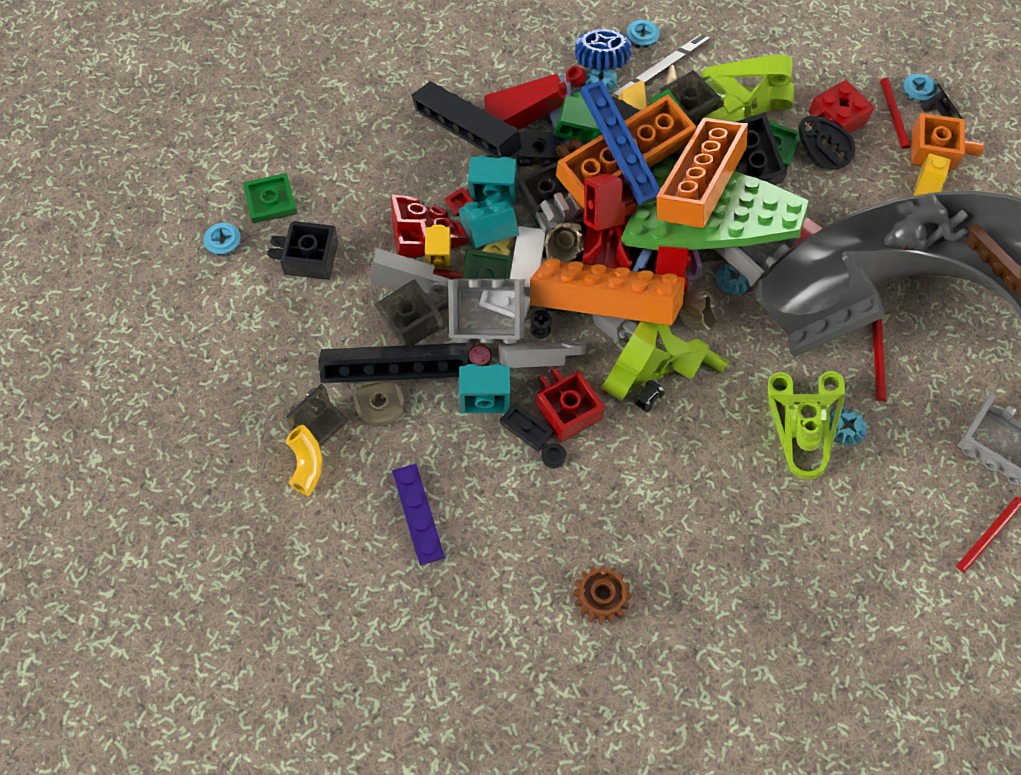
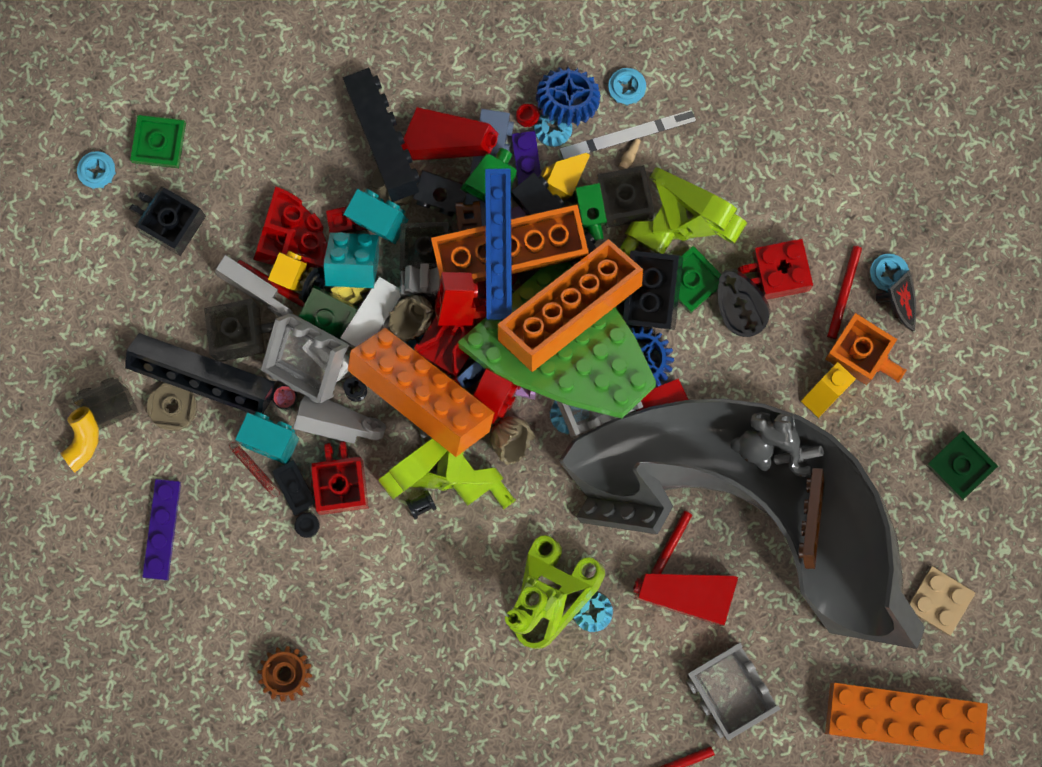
camera: 30 degrees right, 15 degrees up
(458, 252) = (314, 276): none -> black gear
(483, 424) = (263, 473): none -> red piece
(922, 376) = (691, 595): none -> red slope

